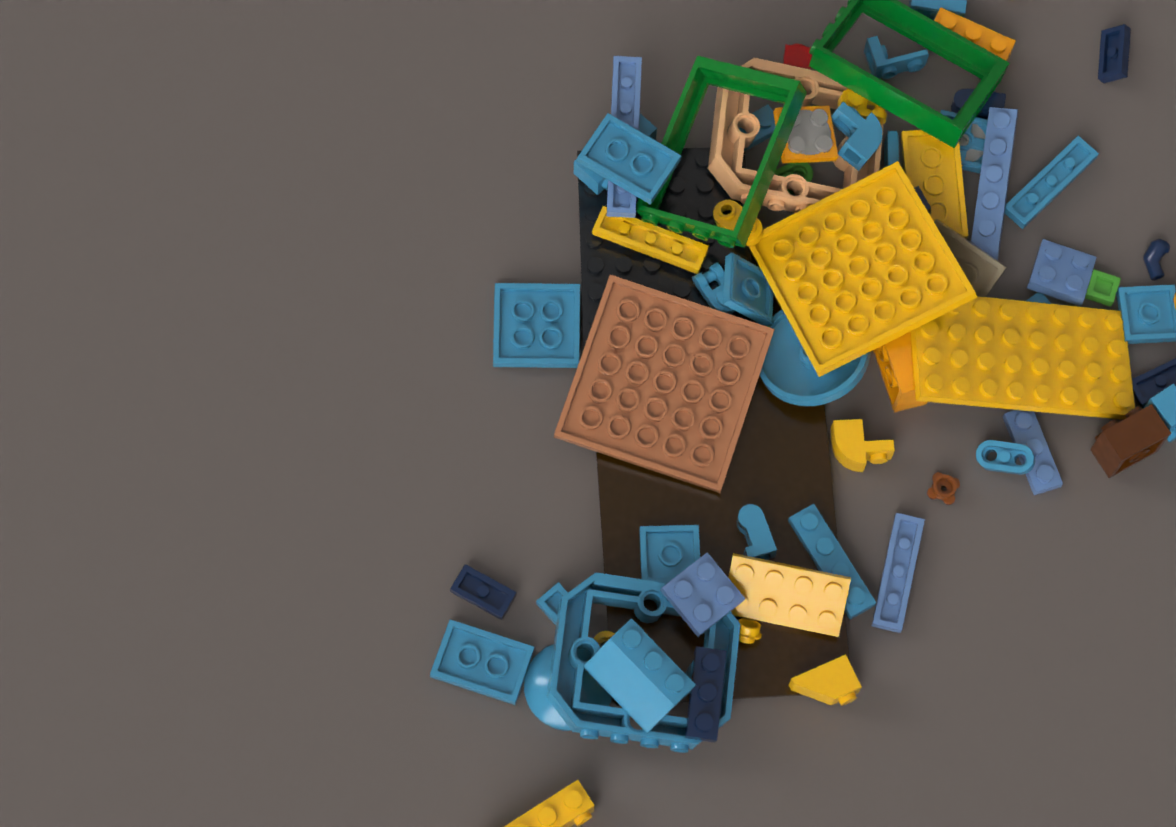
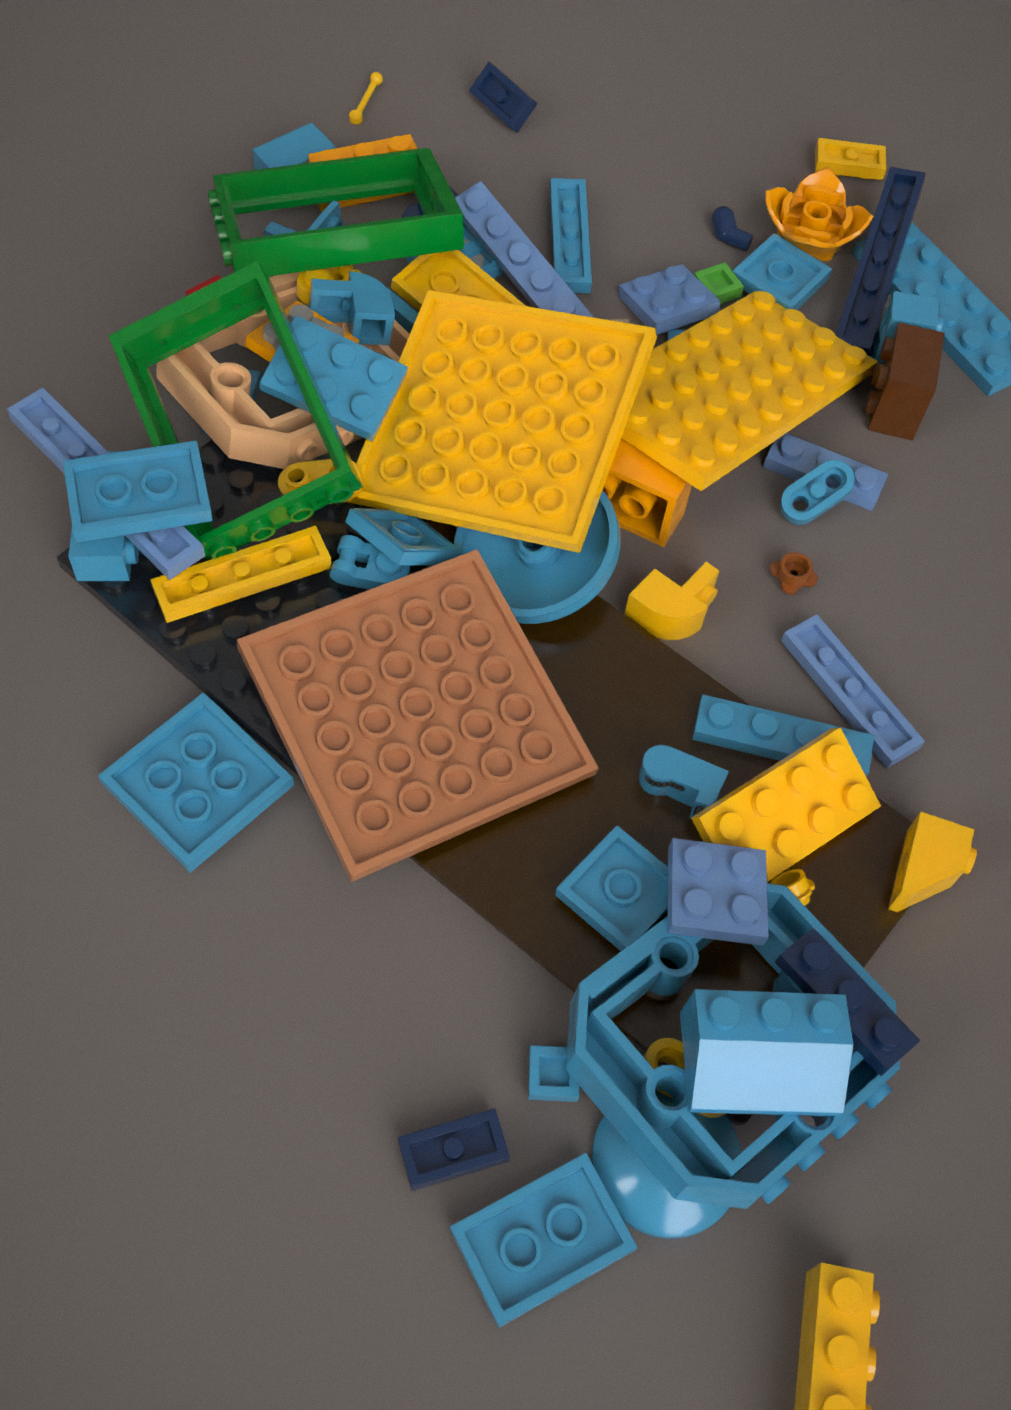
camera: 50 degrees left, 10 degrees down
(800, 178) = (351, 378): none -> dark azure plate

